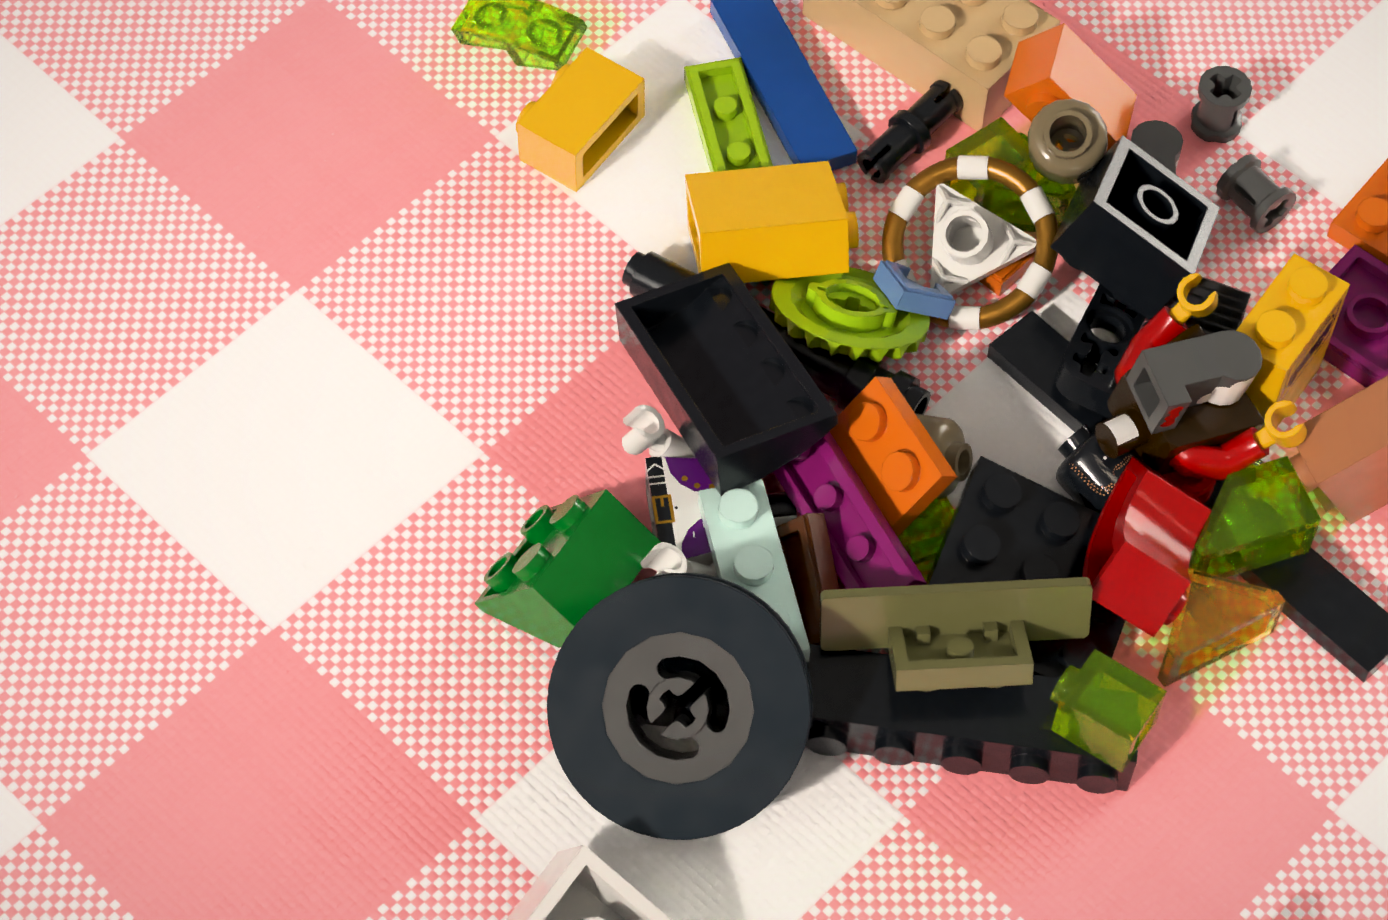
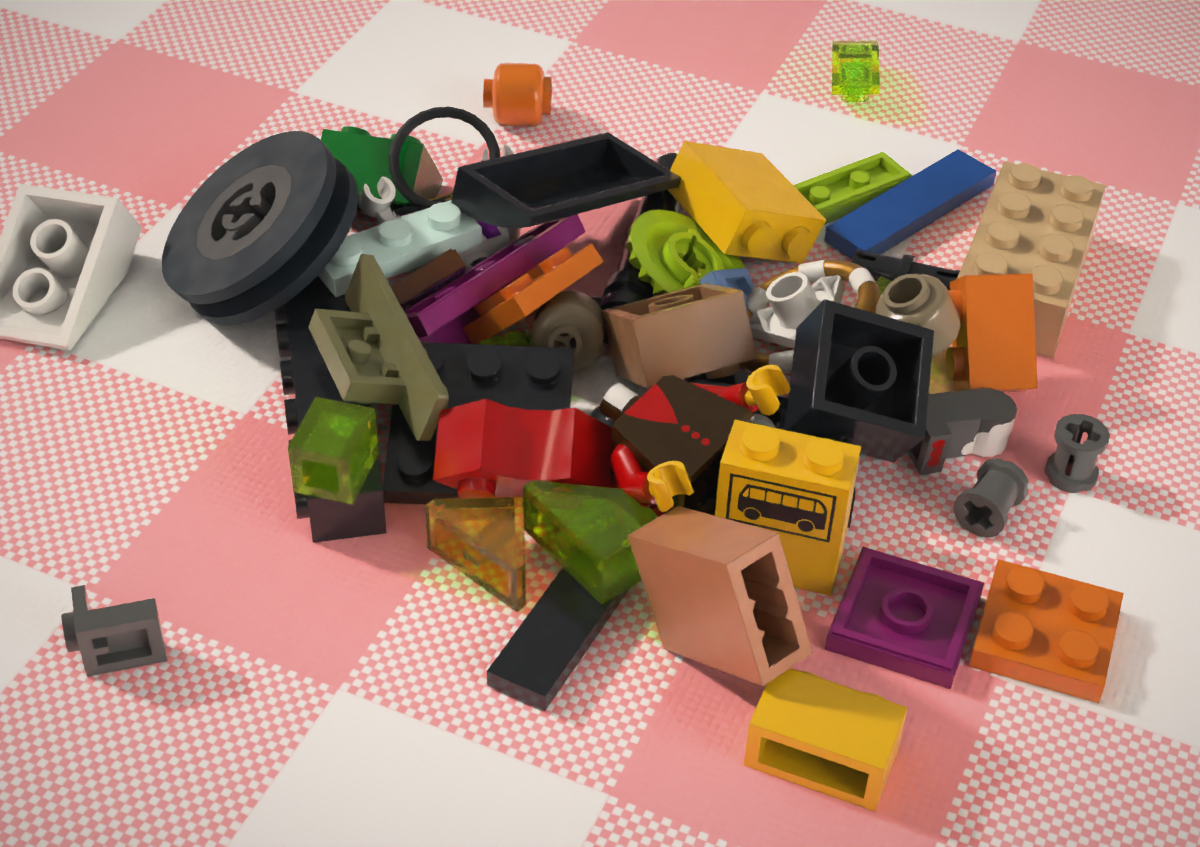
camera: 70 degrees right, 15 degrees down
(435, 375) = (518, 94): none -> orange head
(580, 118) = (791, 110): yellow brick -> none
(590, 496) = (415, 121): none -> black tyre
(992, 353) = (680, 335): none -> medium nougat brick
(1192, 372) = (676, 399): dark grey leg -> none

